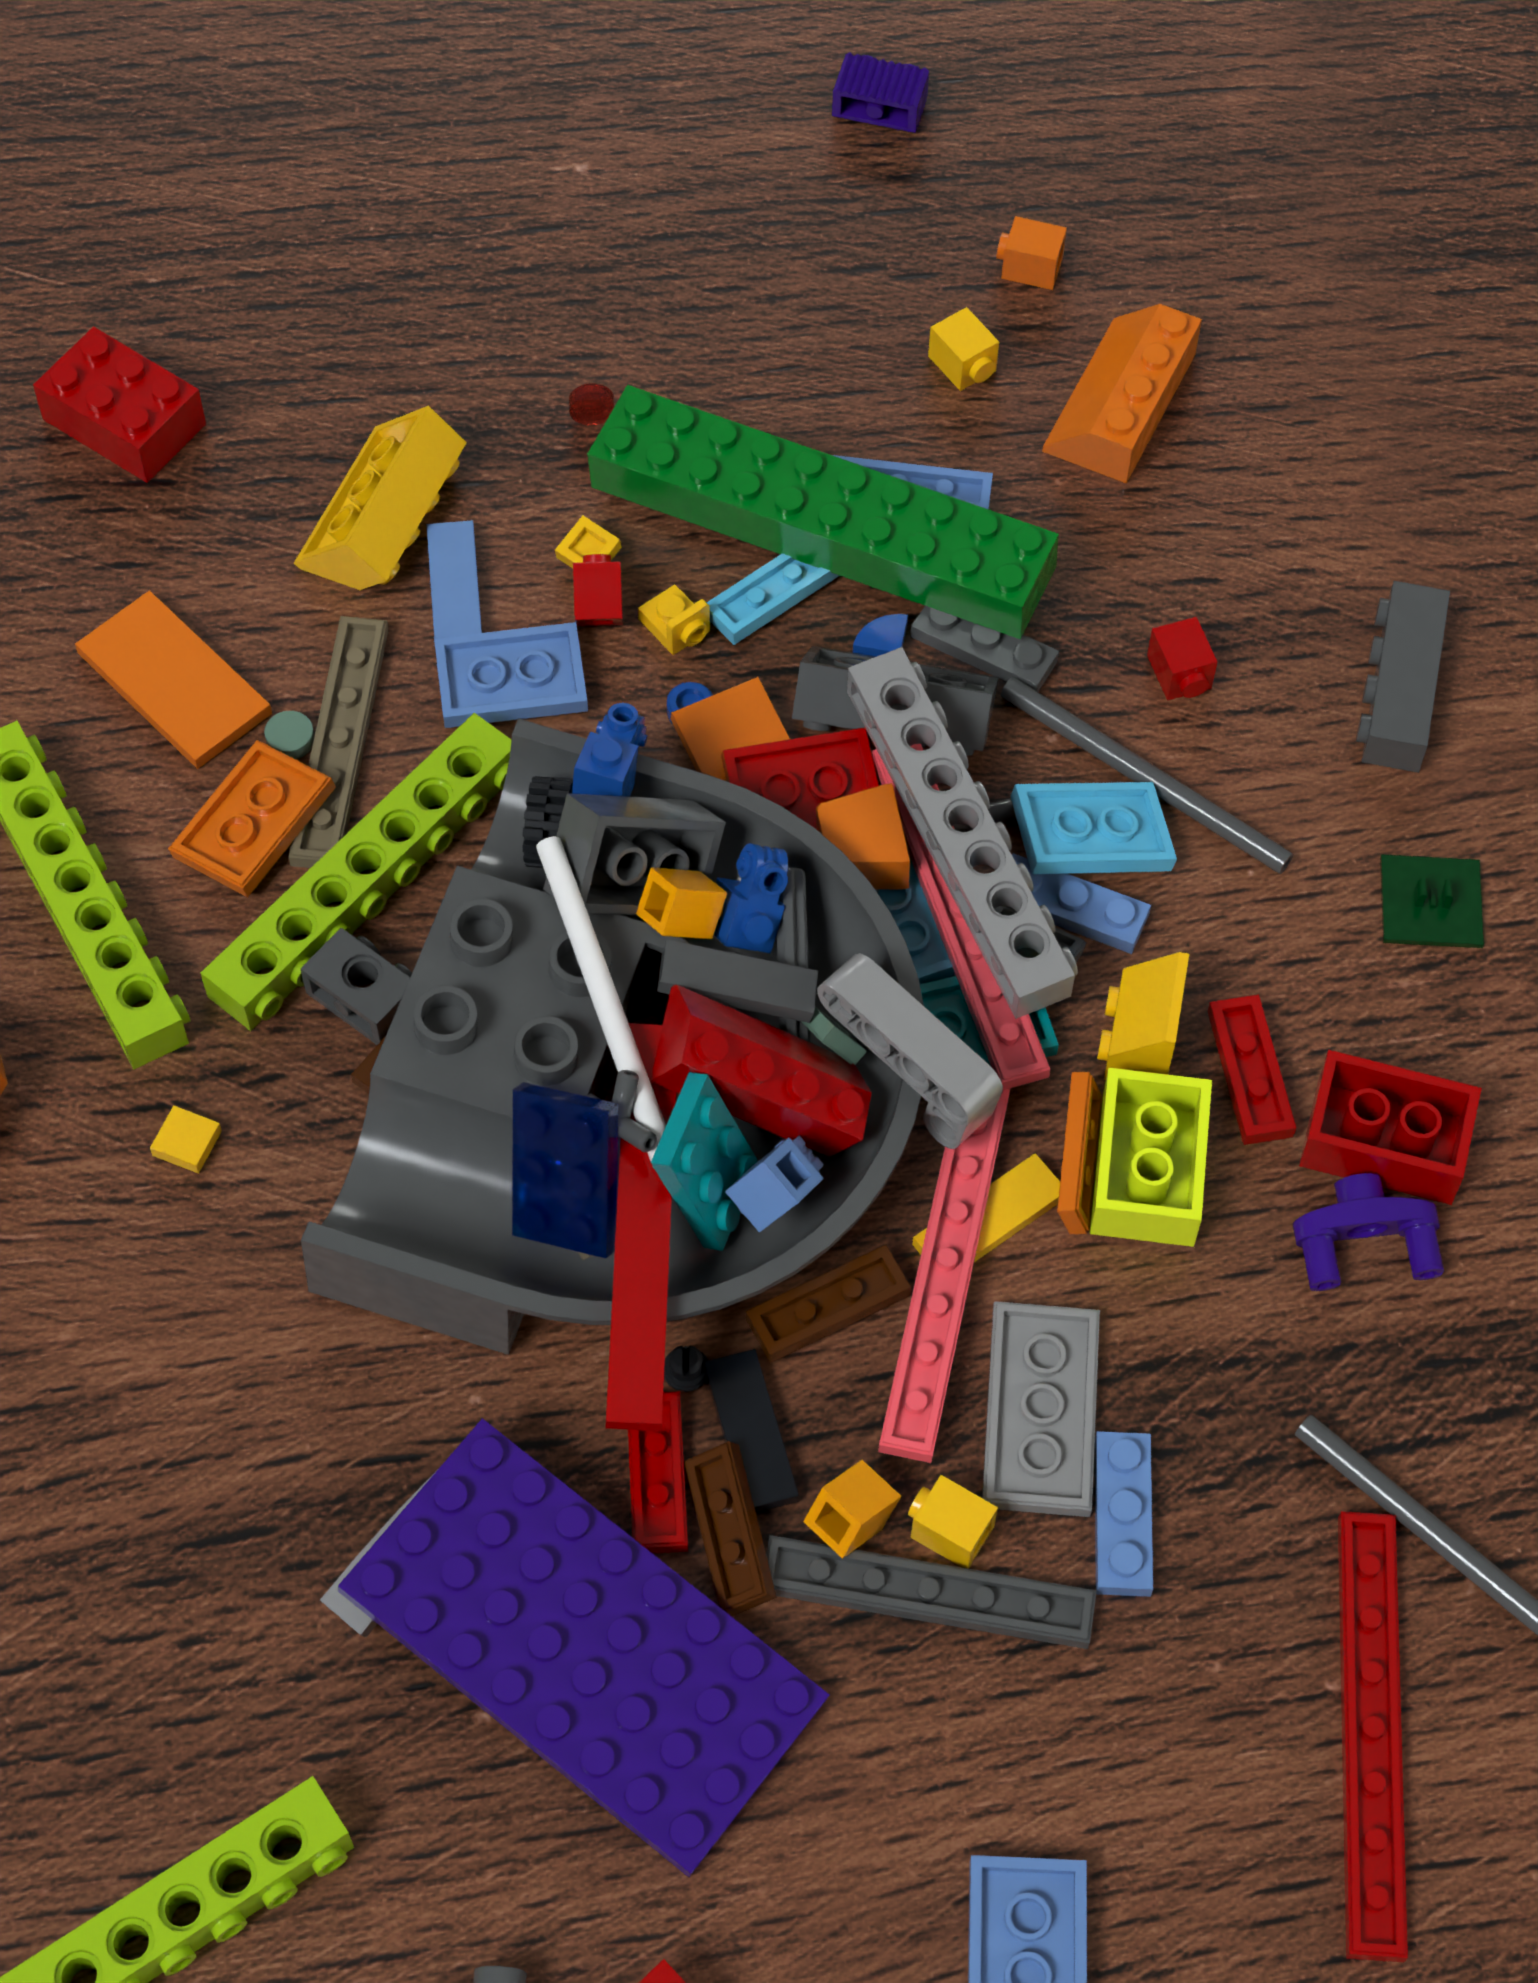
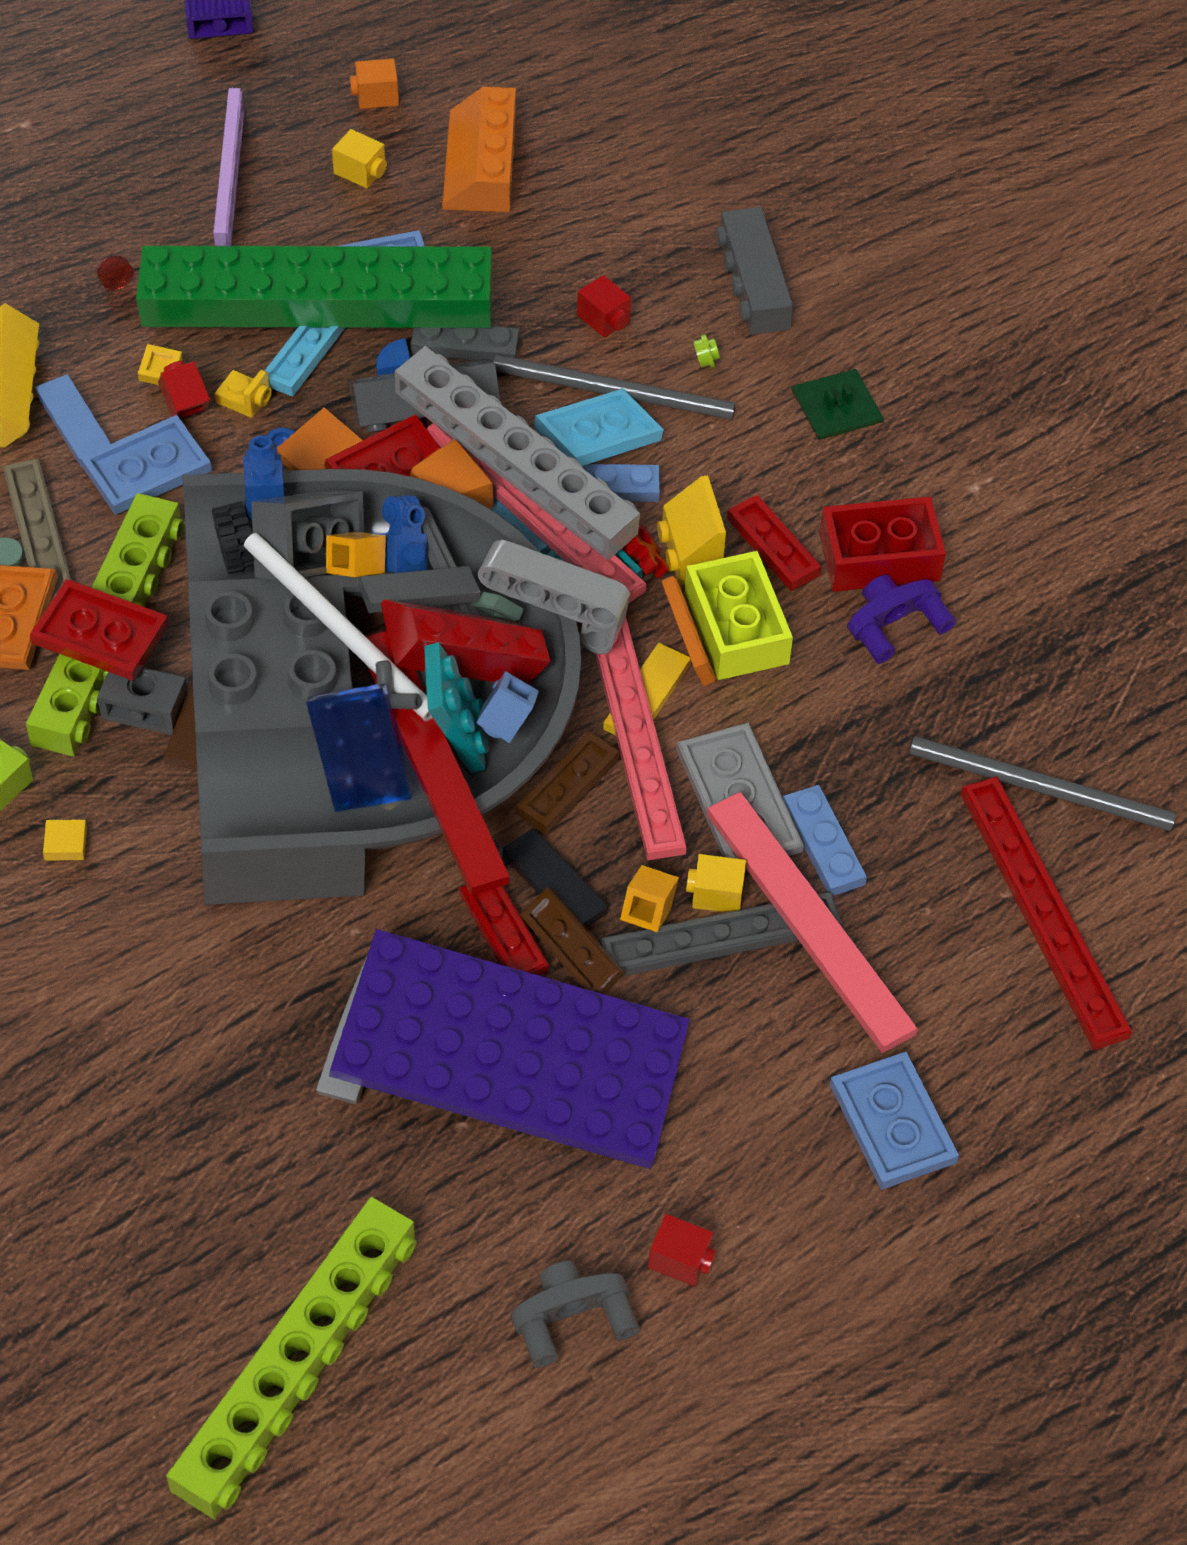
camera: 25 degrees left, 5 degrees down
(339, 883) = (99, 629): none -> red plate
(792, 315) = (229, 168): none -> lavender tile
(1048, 1629) = (812, 923): none -> coral tile
(1078, 1020) = (647, 552): none -> red plate
(1287, 768) = (706, 351): none -> lime plate

